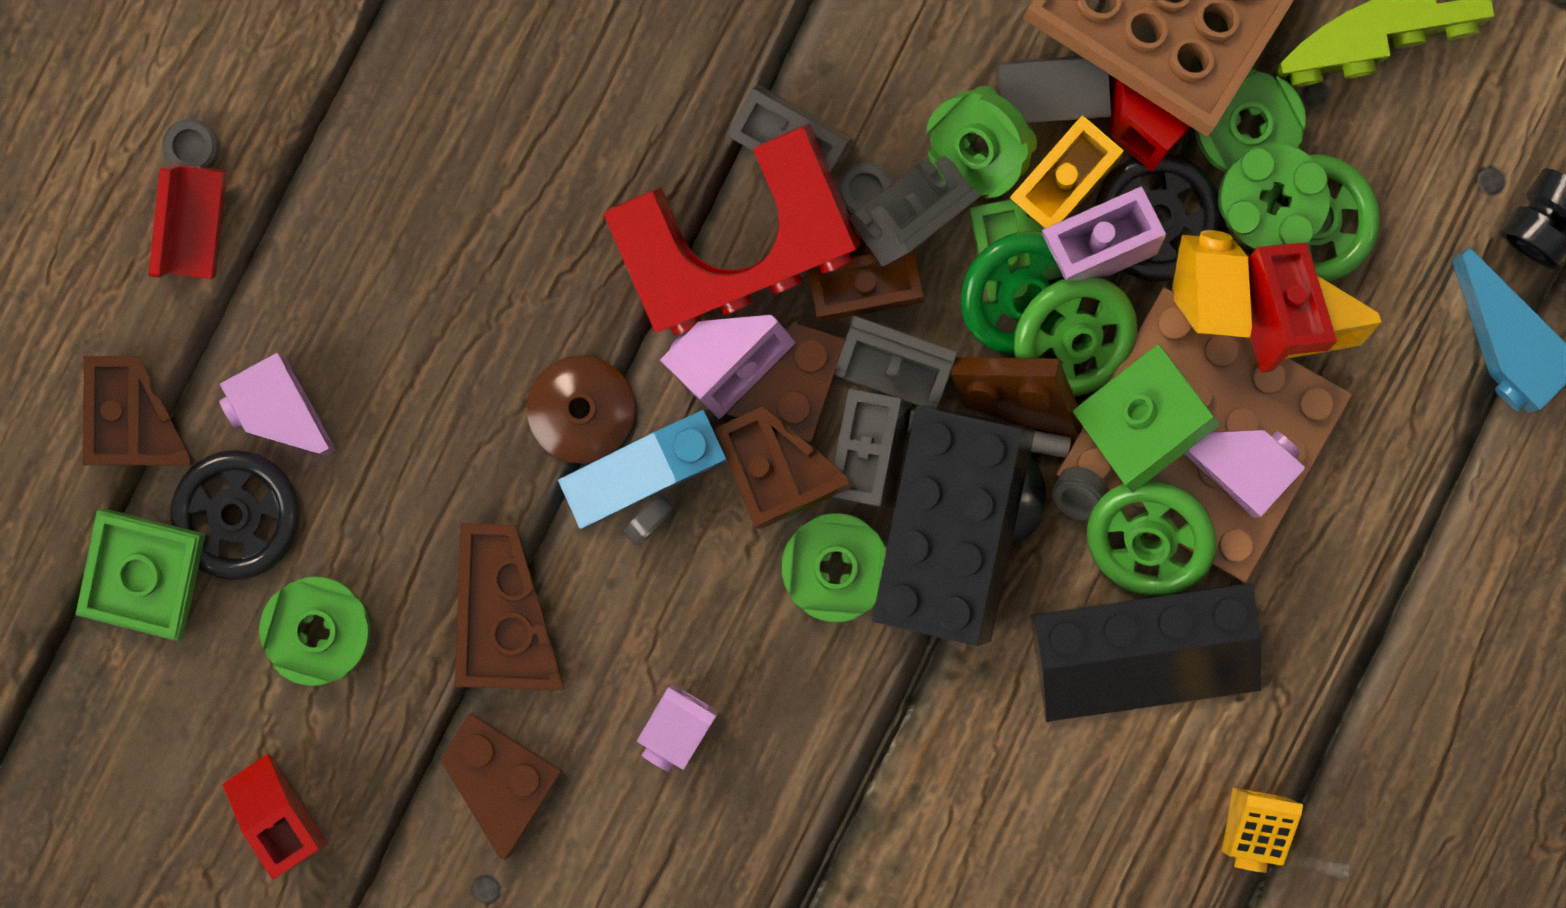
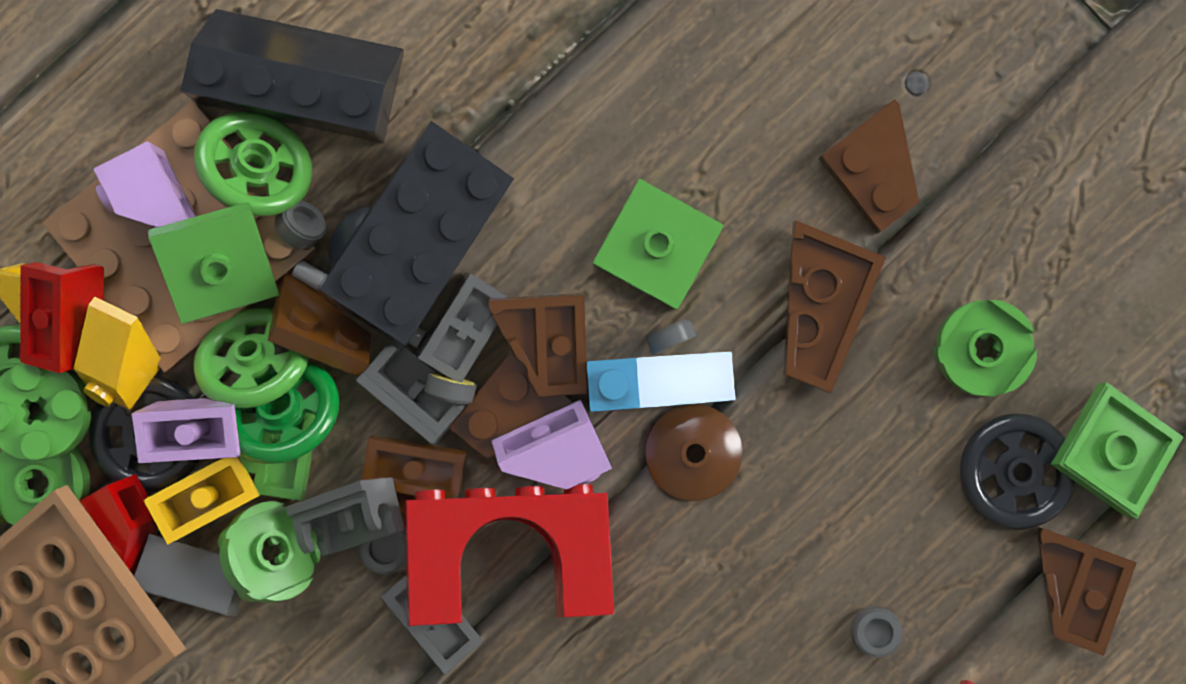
camera: 165 degrees left, 0 degrees up
(272, 817) = (1079, 202): red slope -> none
(274, 406) = (953, 551): lavender slope -> none
(323, 294) = (876, 631): none -> dark grey tile
(675, 728) = (711, 152): lavender slope -> none
(698, 613) = (658, 244): none -> bright green plate
(815, 543) = (540, 265): bright green plate -> none
(857, 377) = (449, 390): none -> dark grey tile

